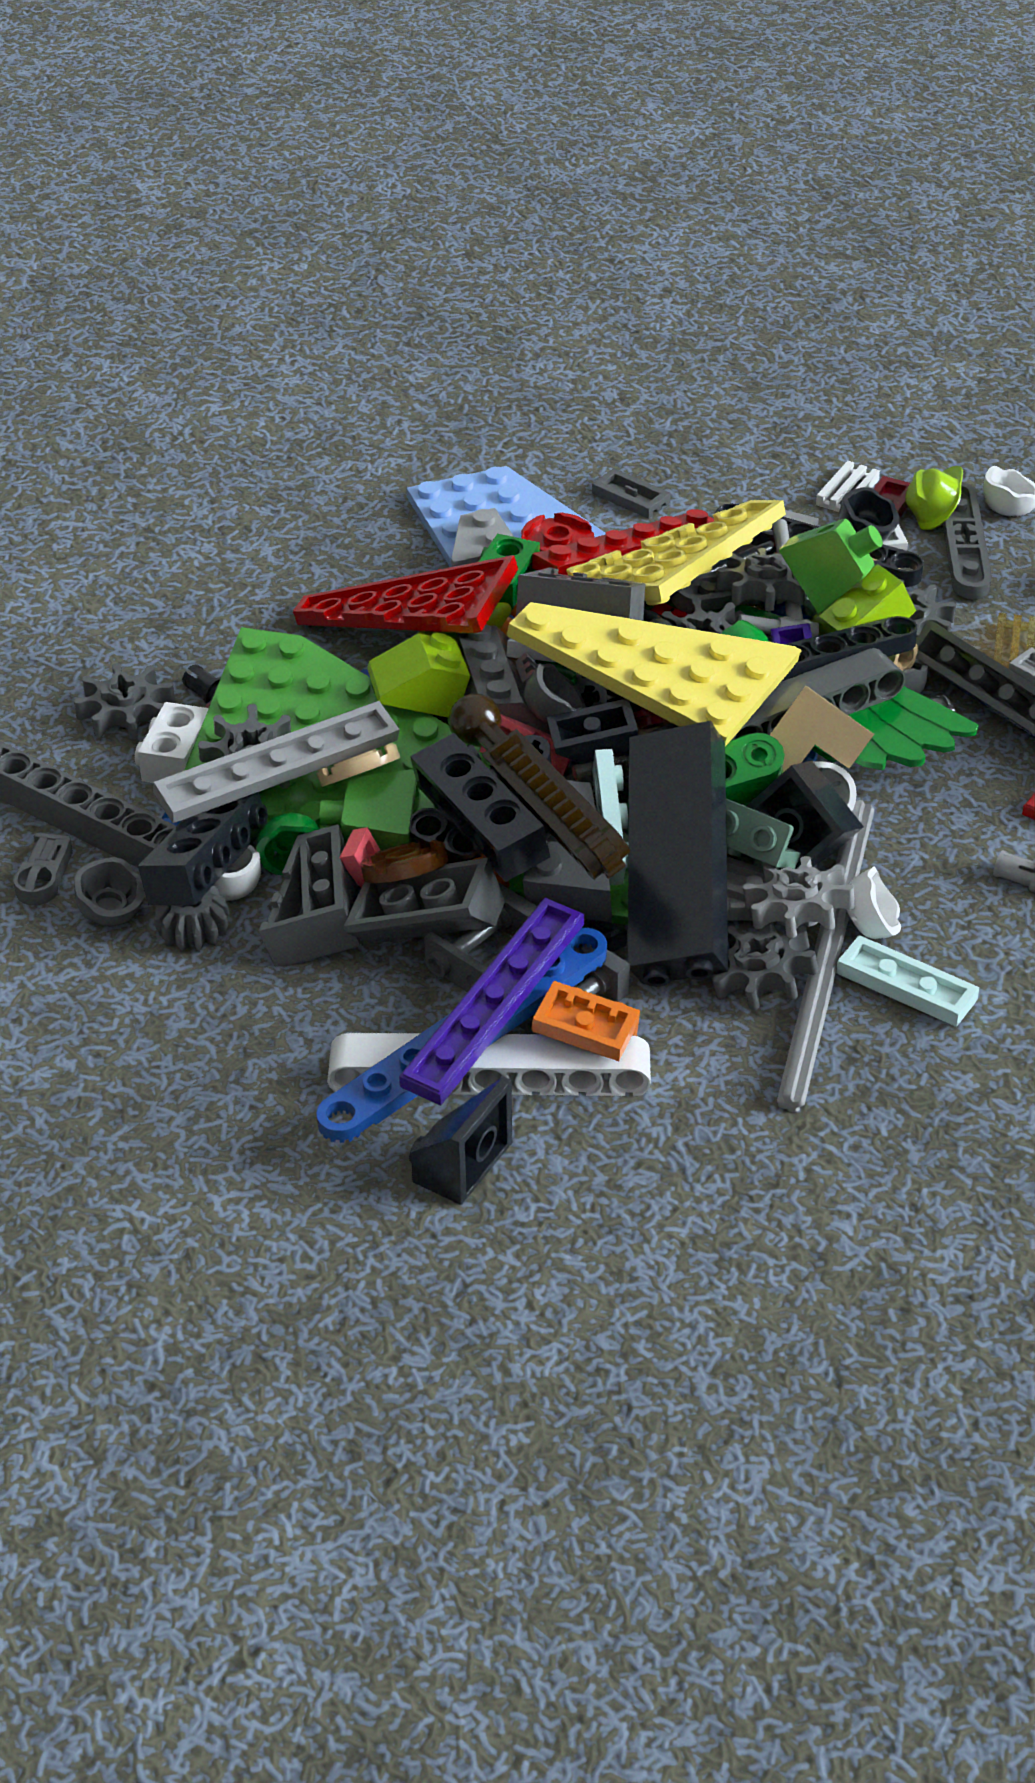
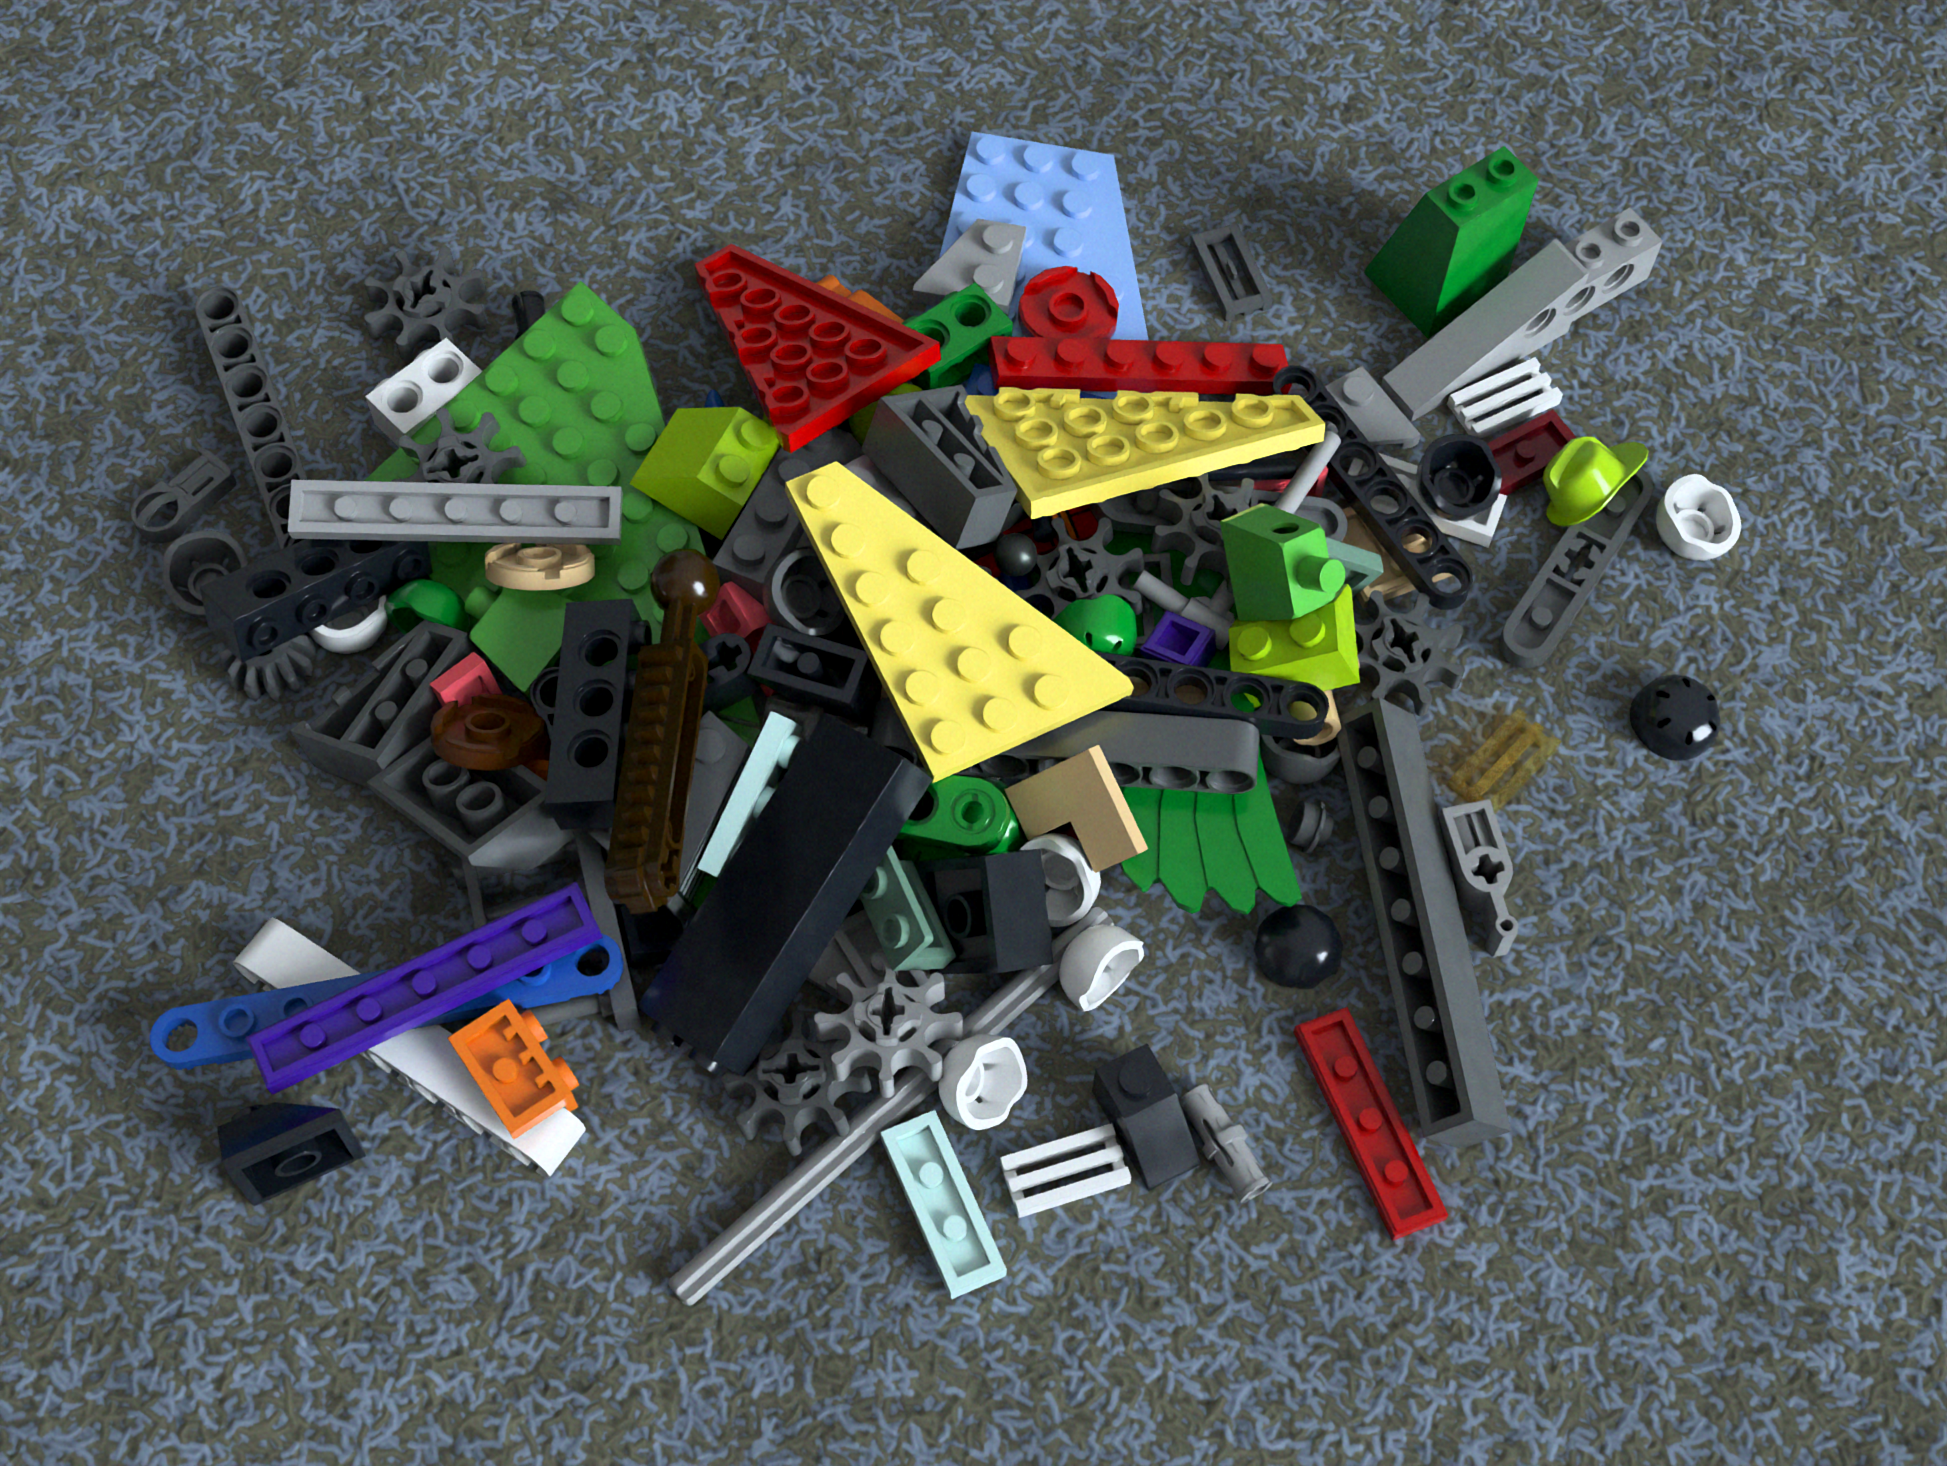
camera: 30 degrees right, 20 degrees up
(765, 411) = (1456, 242): none -> green slope
(827, 435) = (1525, 311): none -> light grey brick
(884, 820) = (1098, 964): none -> white helmet
(942, 929) = (1061, 1147): none -> white tile
(982, 880) = (1146, 1116): none -> black slope
(987, 769) = (1298, 946): none -> black hair

